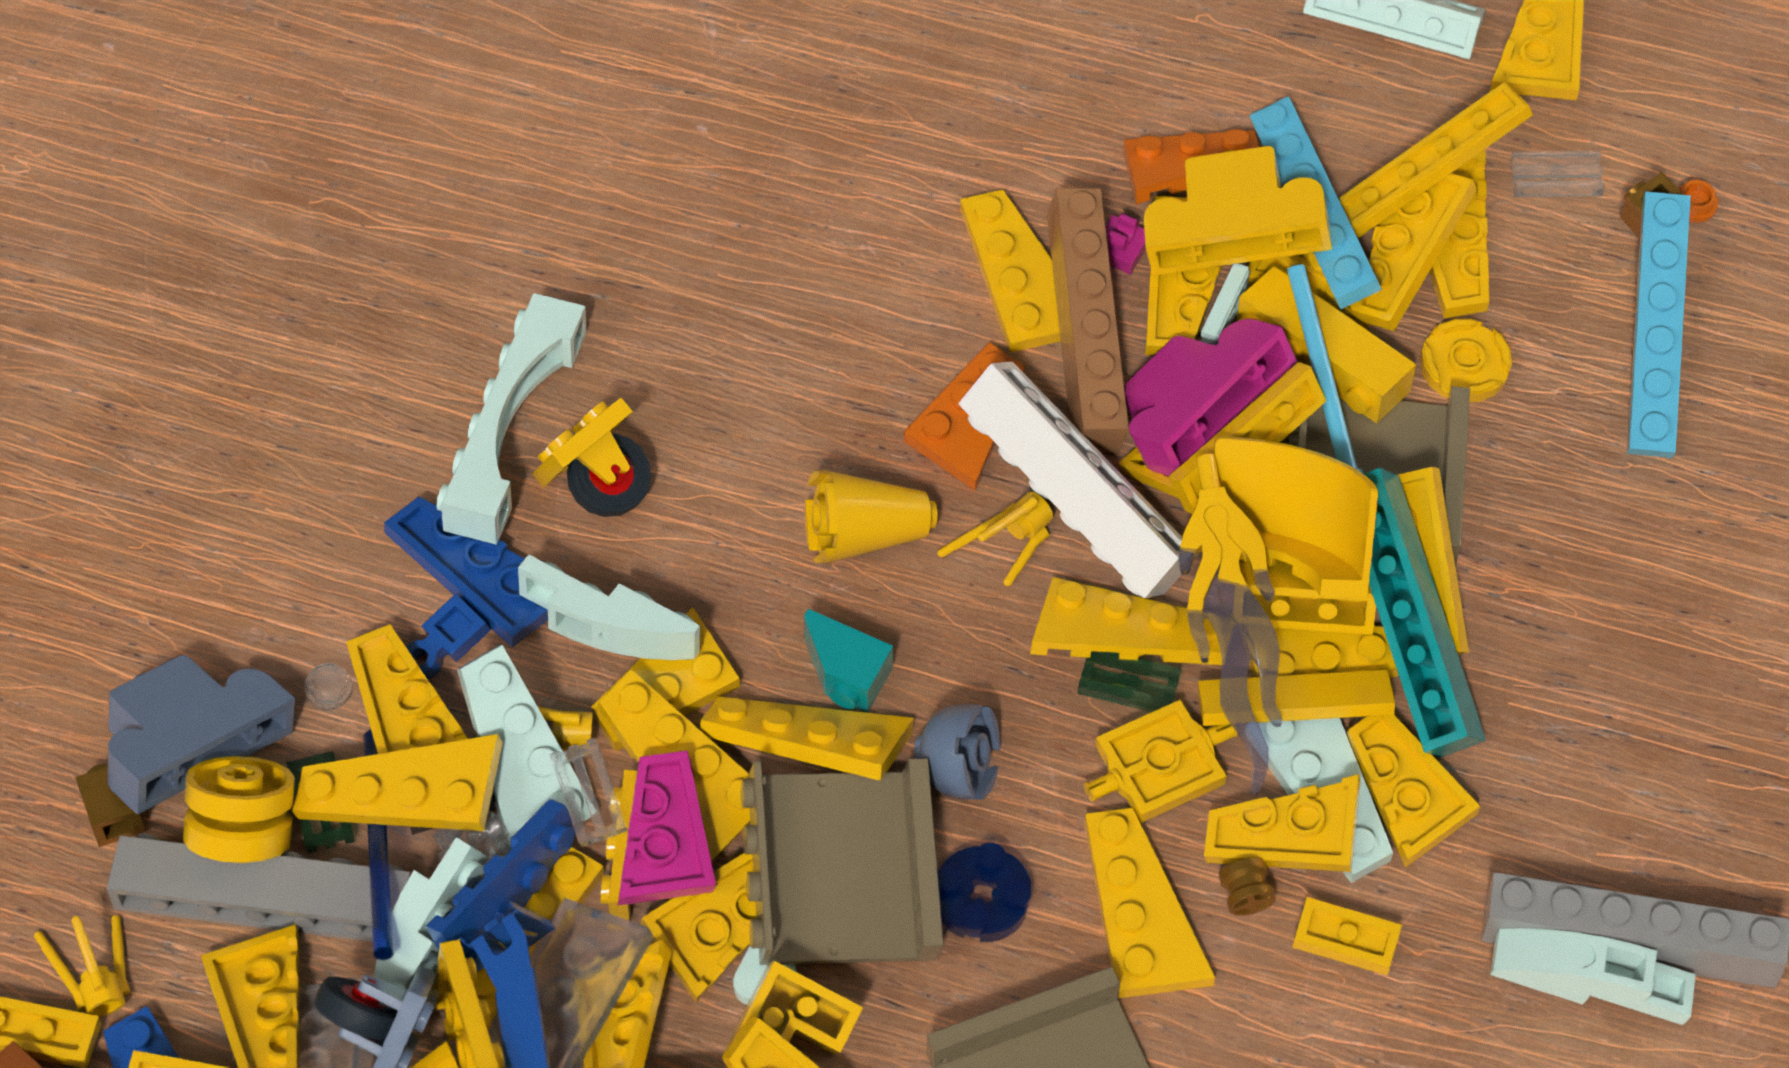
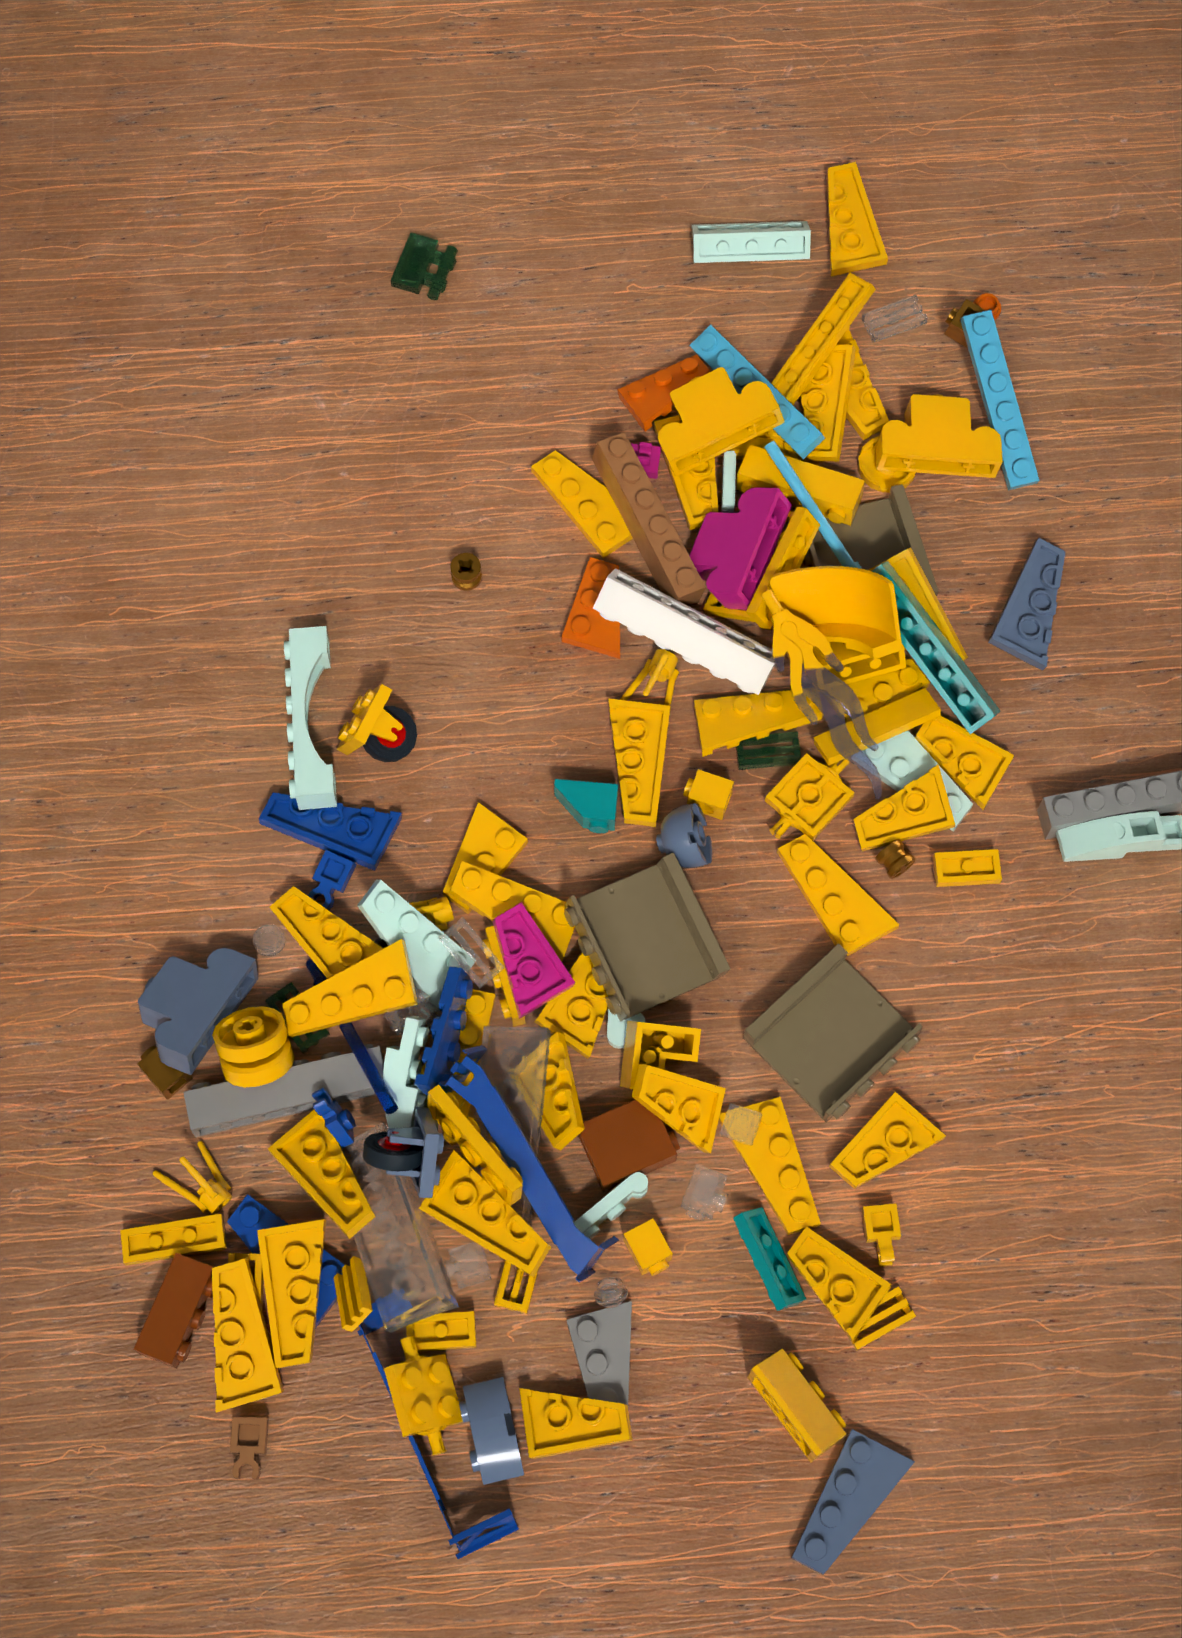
camera: 20 degrees left, 10 degrees up
(308, 949) = (337, 1120): none -> blue plate
(617, 623) = (442, 832): light aqua slope -> none
(806, 315) = (466, 579): none -> pearl gold wheel
(820, 736) = (597, 858): yellow wing -> none
(863, 516) = (559, 704): yellow cone -> none
(948, 615) = (639, 749): none -> yellow wing
(987, 867) = (753, 916): clear blue plate -> none
(1020, 706) = (710, 793): none -> yellow brick
(1548, 350) = (939, 440): none -> yellow brick
(1584, 624) = (1029, 611): none -> sand blue wing

